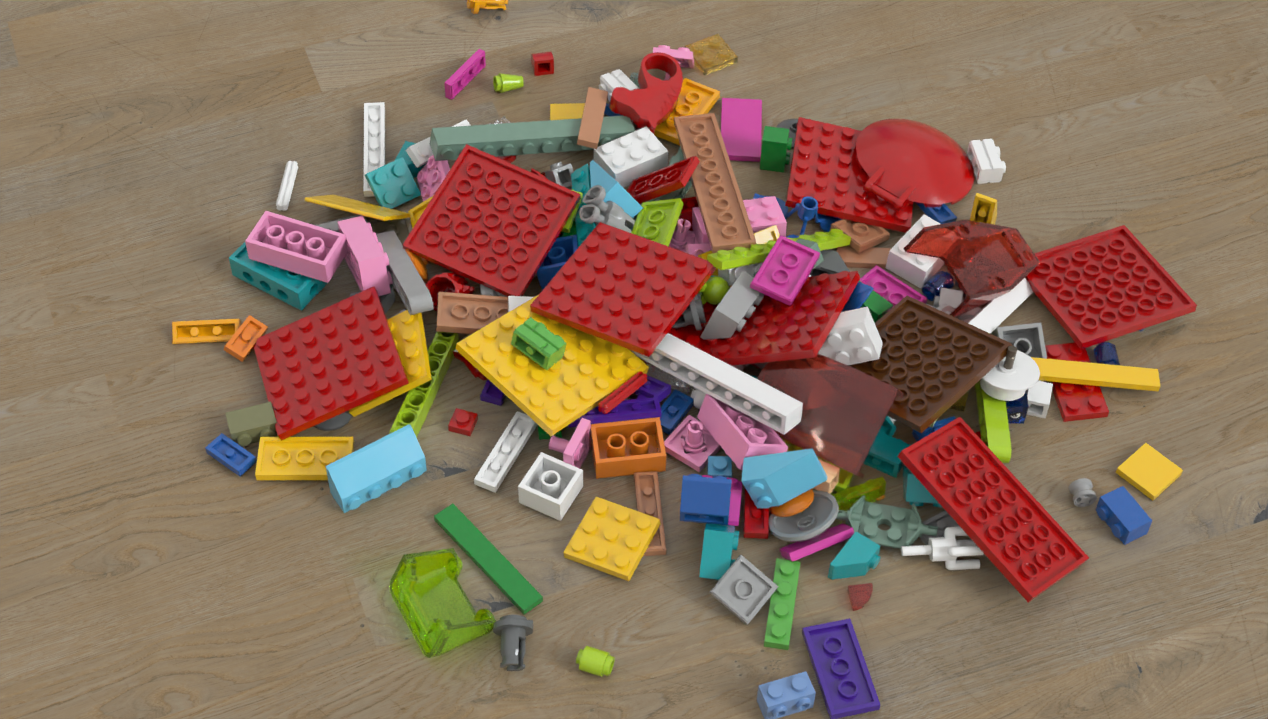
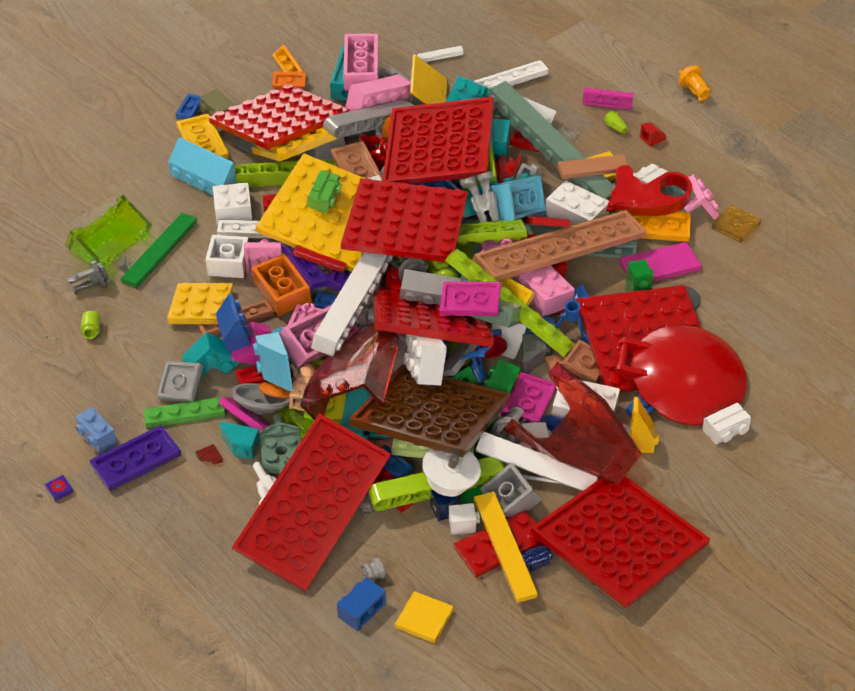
camera: 70 degrees right, 5 degrees down
(452, 458) = (232, 202): none -> white brick

